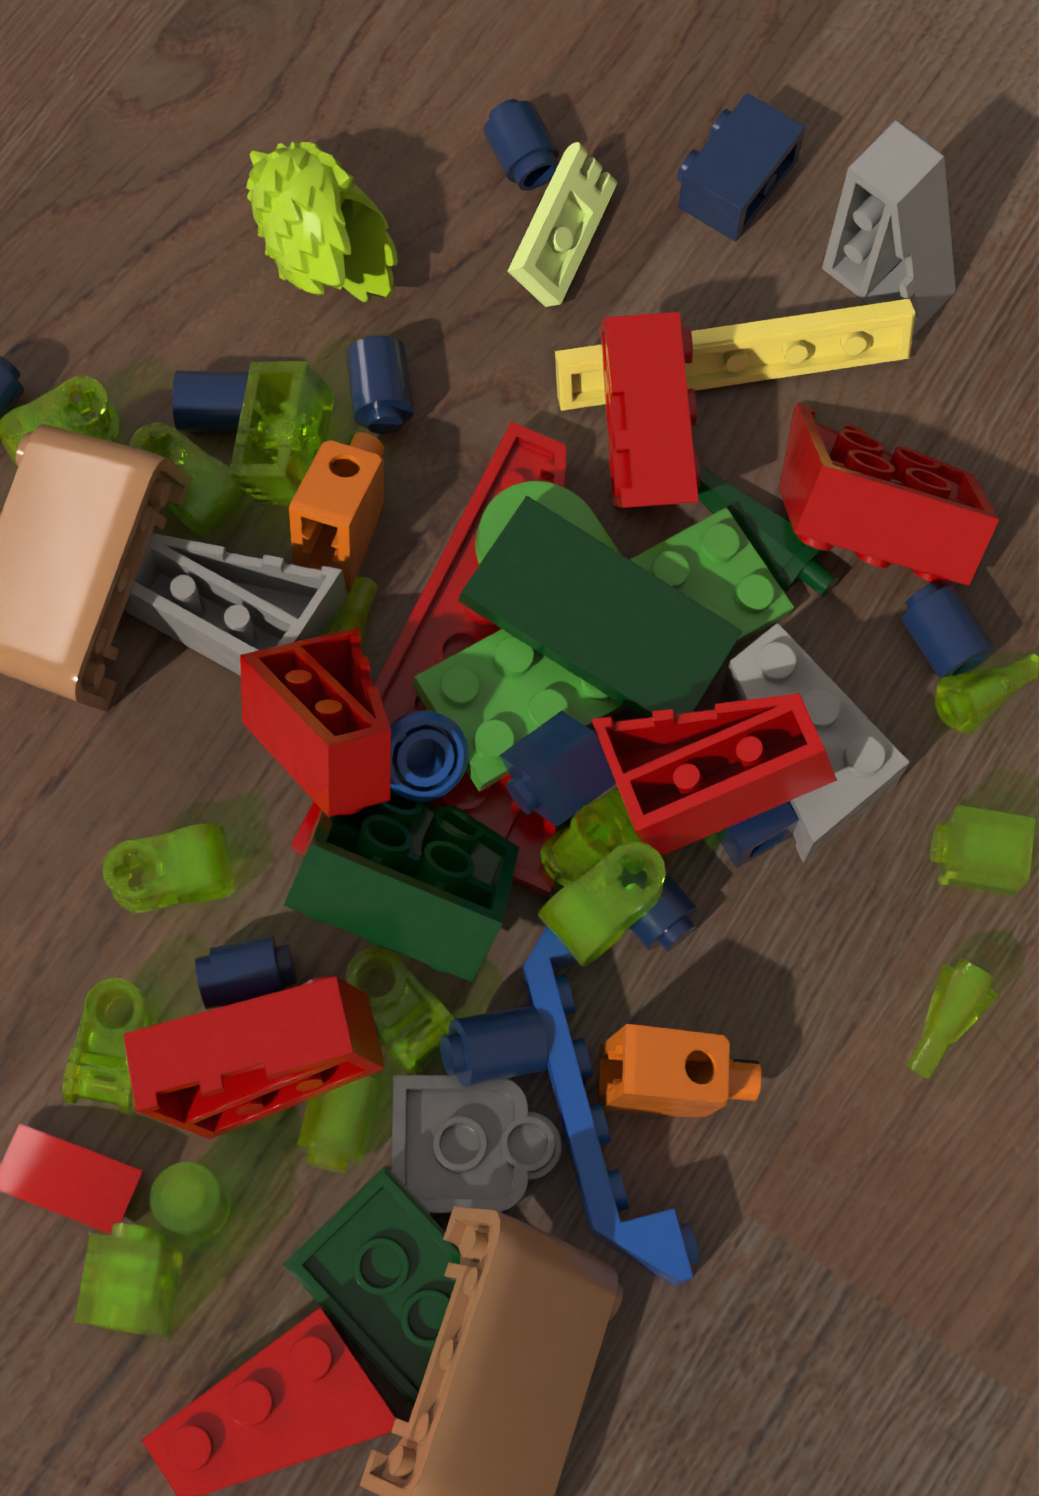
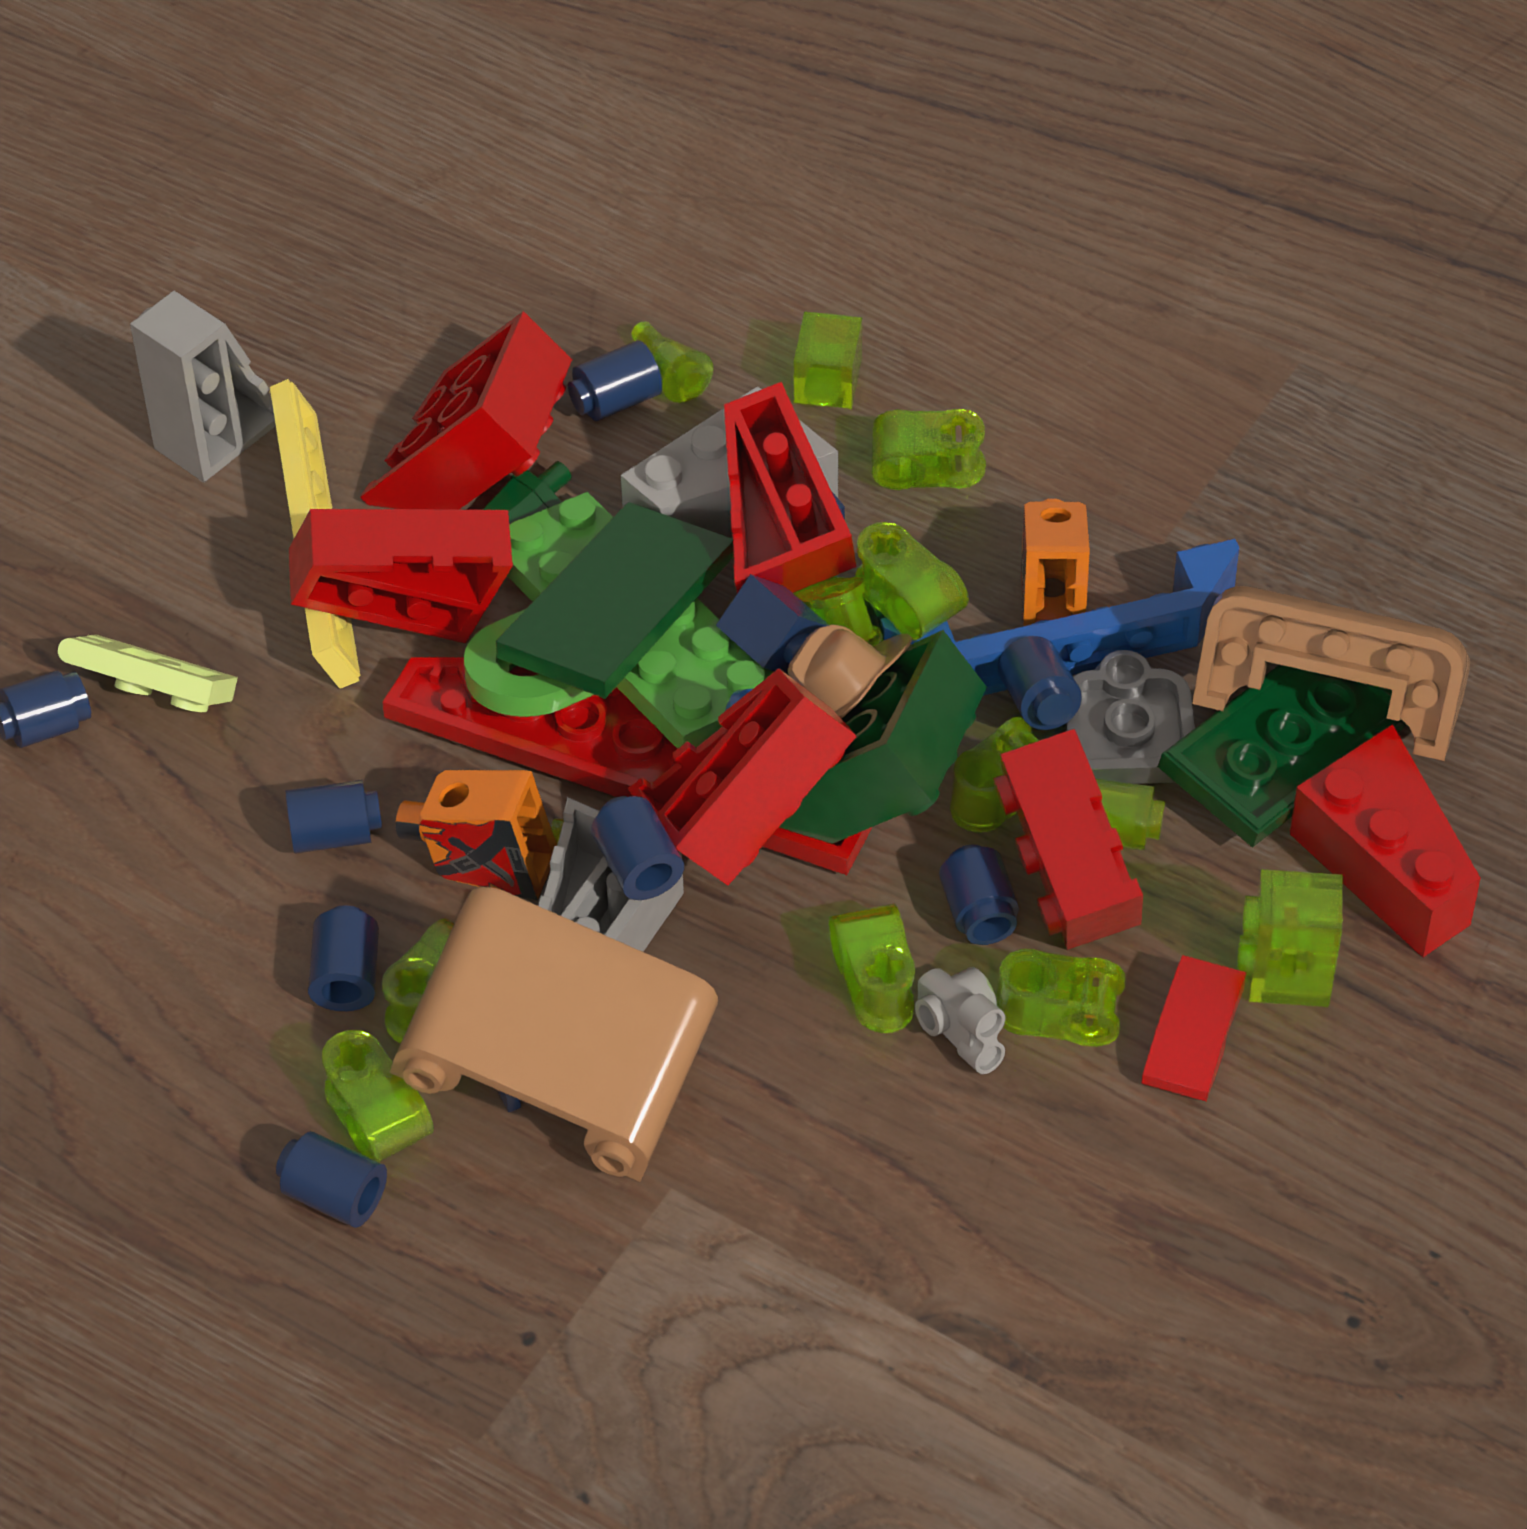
camera: 90 degrees left, 20 degrees down
(109, 942) = (965, 1013): none -> light grey plate
(190, 1201) = (1206, 915): clear neon green brick -> none
(250, 620) = (637, 847): none -> dark blue brick
(280, 429) = (394, 878): clear neon green brick -> none
(319, 223) = (137, 865): lime head -> none
(489, 834) = (843, 666): none -> medium nougat piece
(739, 166) = (92, 527): dark blue brick -> none
(854, 942) = (921, 449): none -> clear neon green piece
(956, 1004) = (967, 384): clear neon green cone -> none

